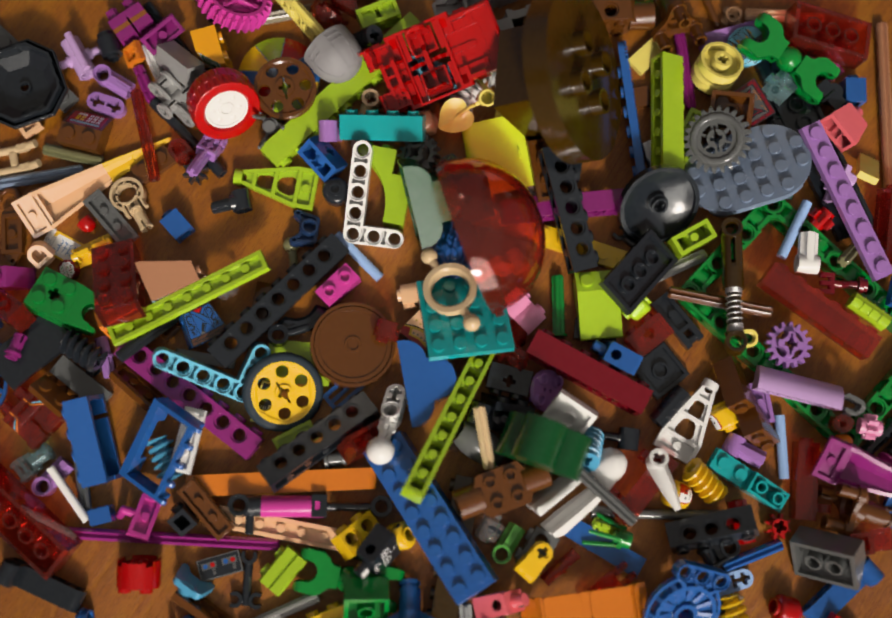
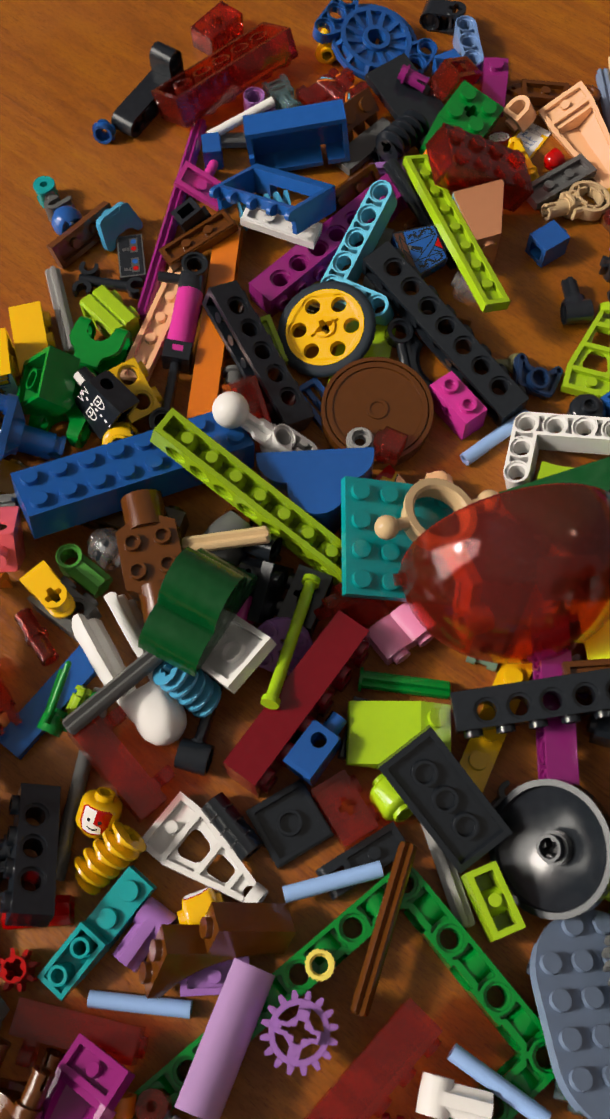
camera: 105 degrees right, 15 degrees down
(138, 573) = (138, 173): red brick -> none
(388, 348) = (359, 433): none -> light grey plate
(549, 381) = (271, 698): none -> lime bar
(662, 476) = (123, 788): white piece -> none
(695, 337) = (332, 881): none -> light blue piece
(733, 284) = (413, 948): dark brown piece -> none

